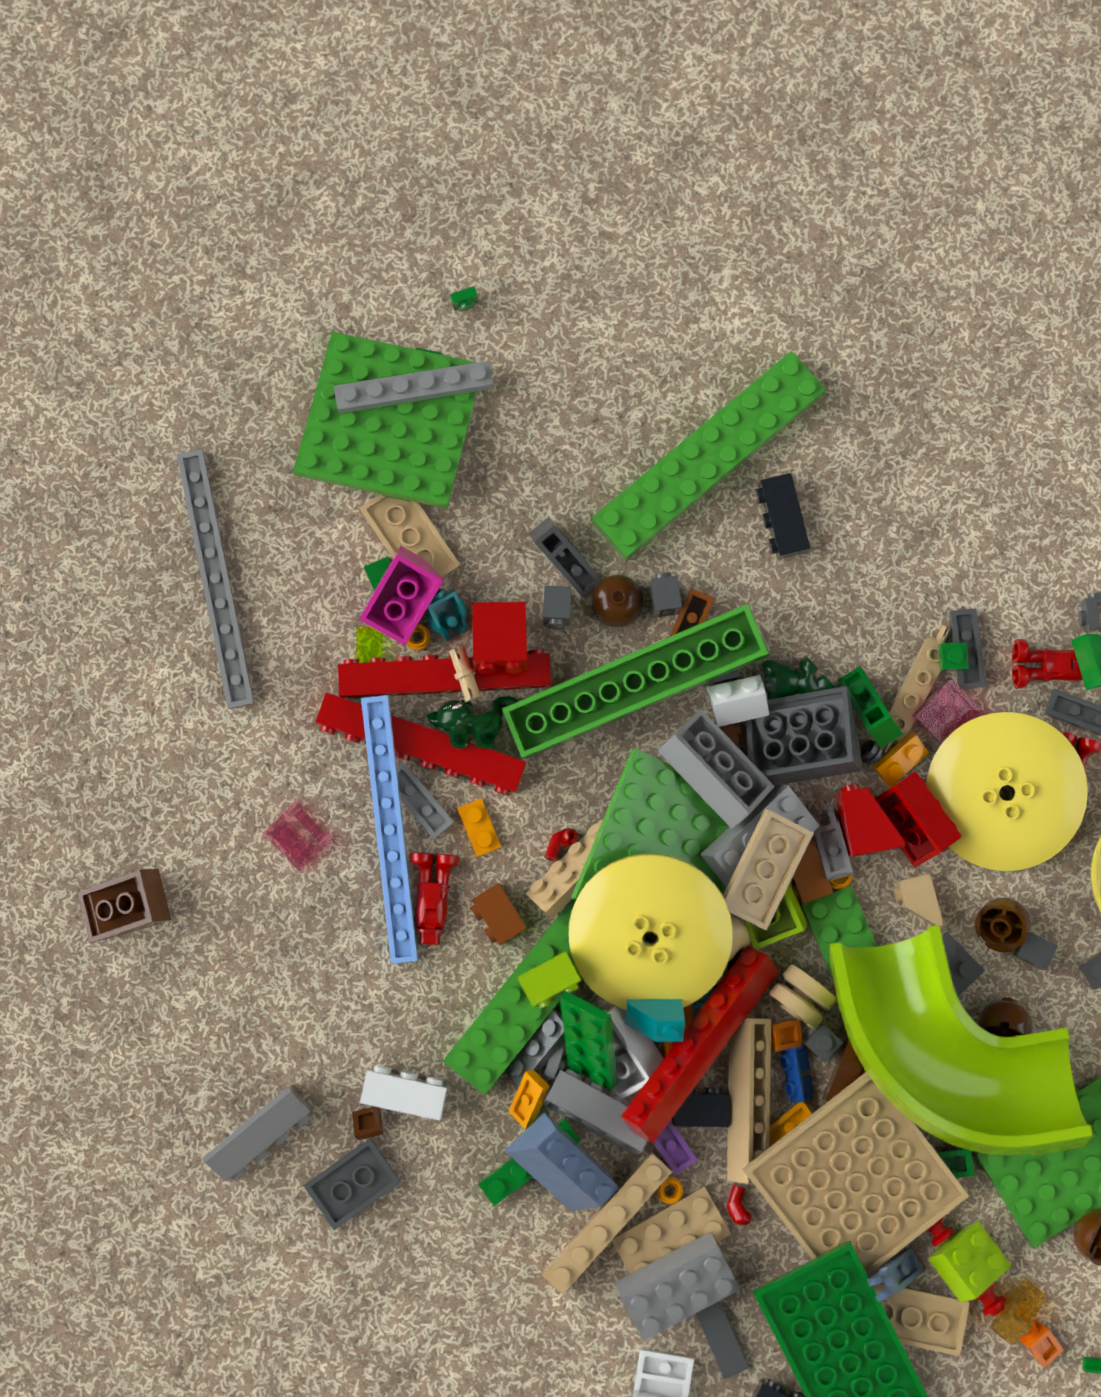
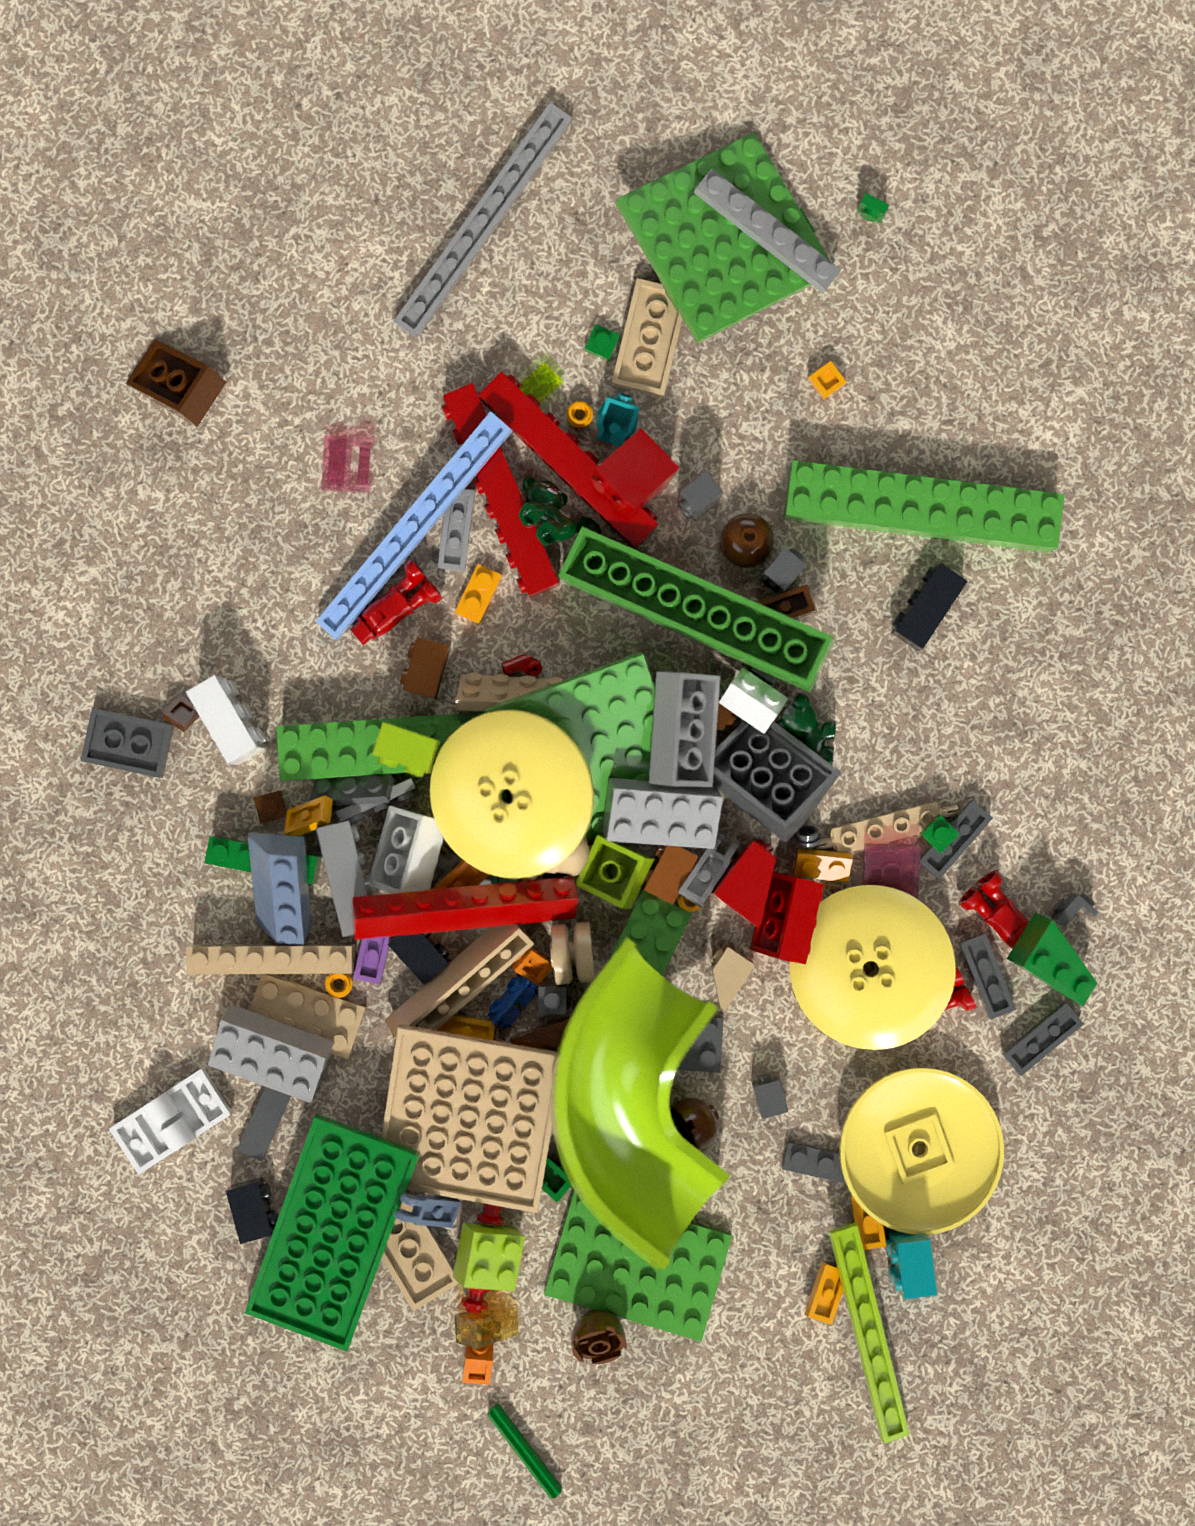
camera: 45 degrees right, 5 degrees up
(257, 1134) = (97, 638): light grey slope -> none
(402, 596) = (598, 370): dark pink slope -> none
(464, 674) = (582, 473): tan pin -> none
(494, 1121) = (270, 807): none -> reddish brown plate
(556, 440) = (827, 380): none -> light orange plate
(565, 556) = (743, 469): dark grey slope -> none
(589, 1040) = (388, 821): green plate -> none
(657, 1018) = (451, 857): teal slope -> none
(735, 1207) = (370, 1045): red arm -> none
(766, 868) = (642, 837): tan plate -> none
(870, 707) = (841, 806): green slope -> none
(1003, 924) = (767, 1055): reddish brown cylinder -> none

